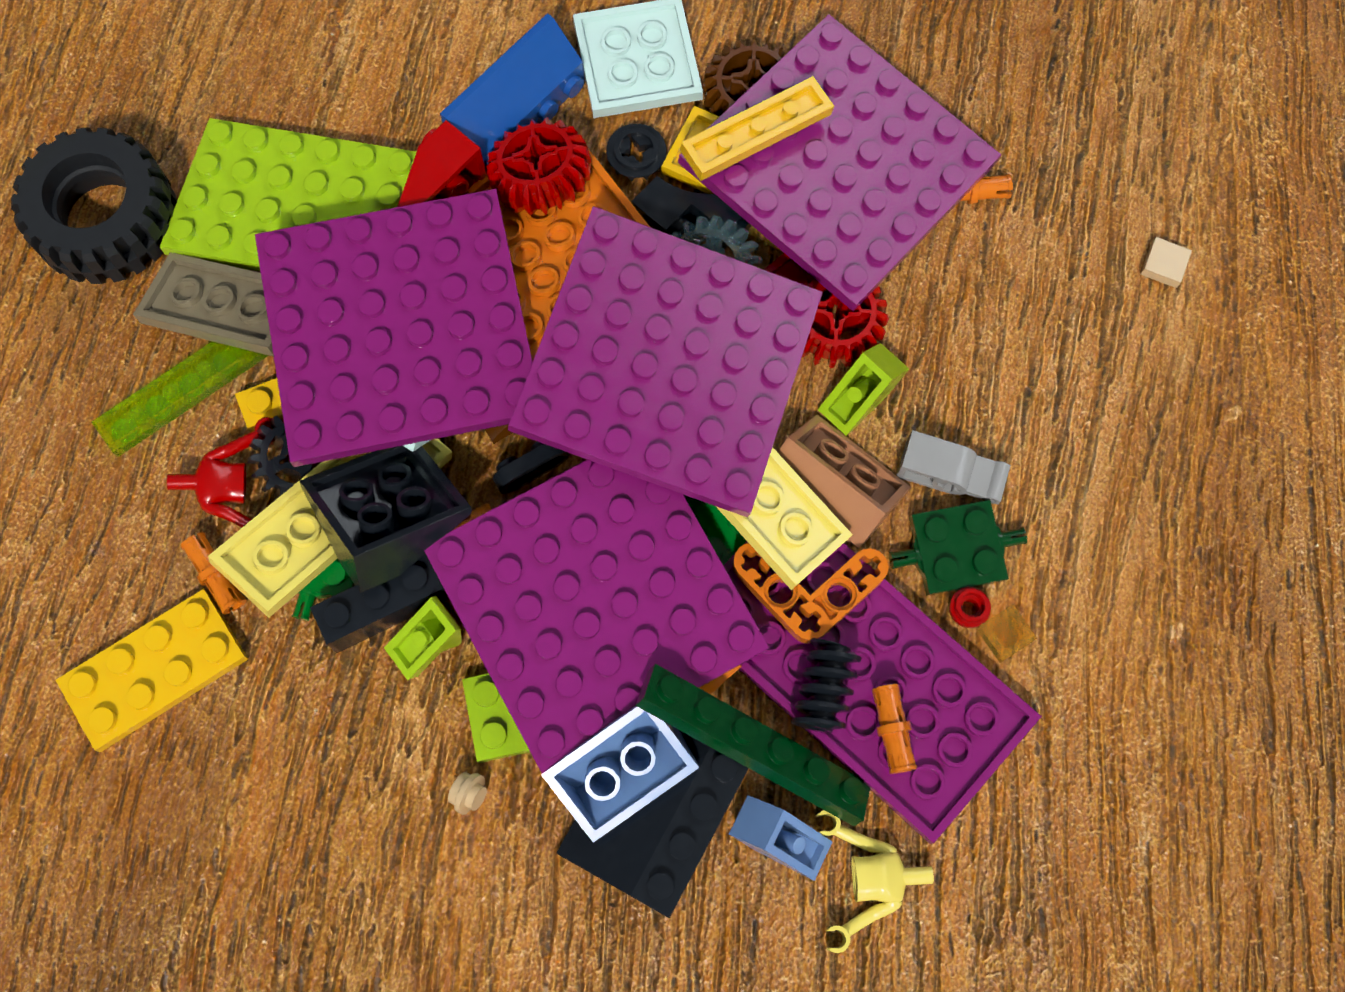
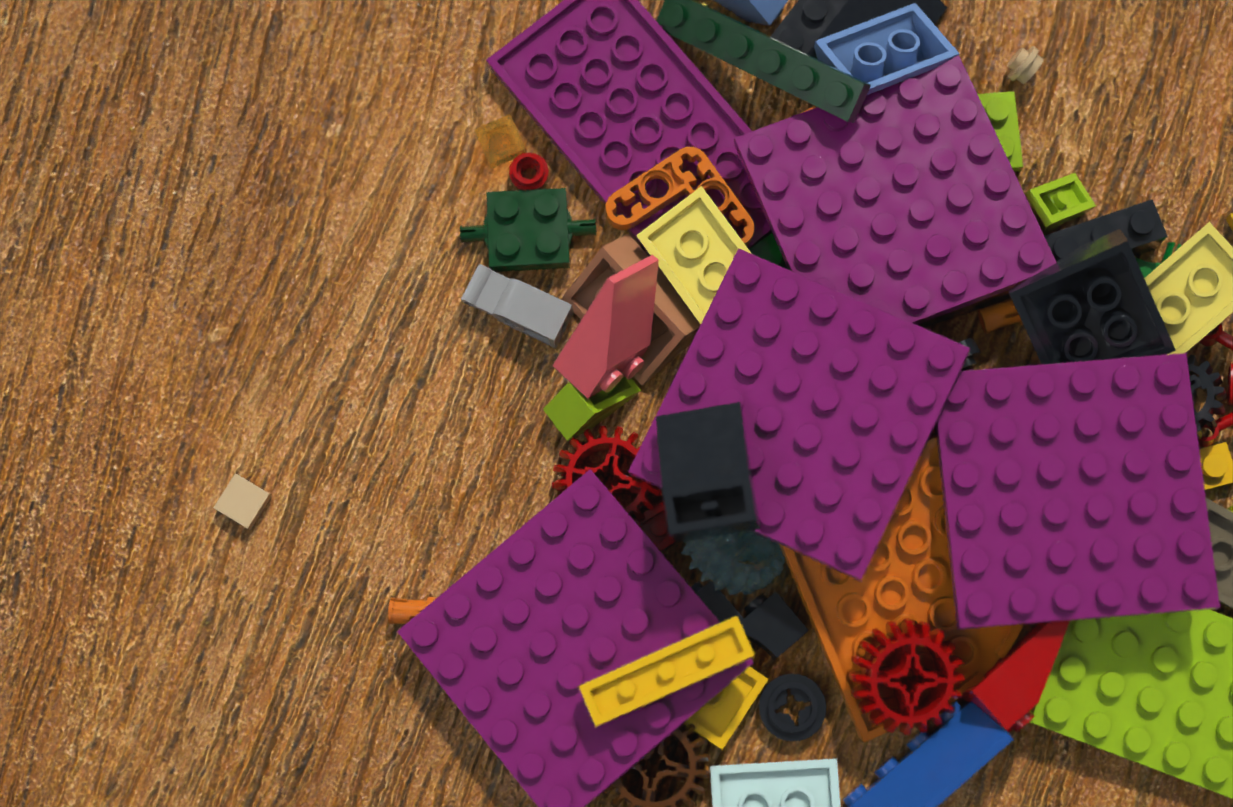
camera: 165 degrees left, 5 degrees up
(751, 273) = (706, 473): none -> black slope
(826, 686) = (681, 99): black piece -> none
(858, 423) = (613, 331): none -> coral slope
(894, 729) = (627, 61): orange pin -> none

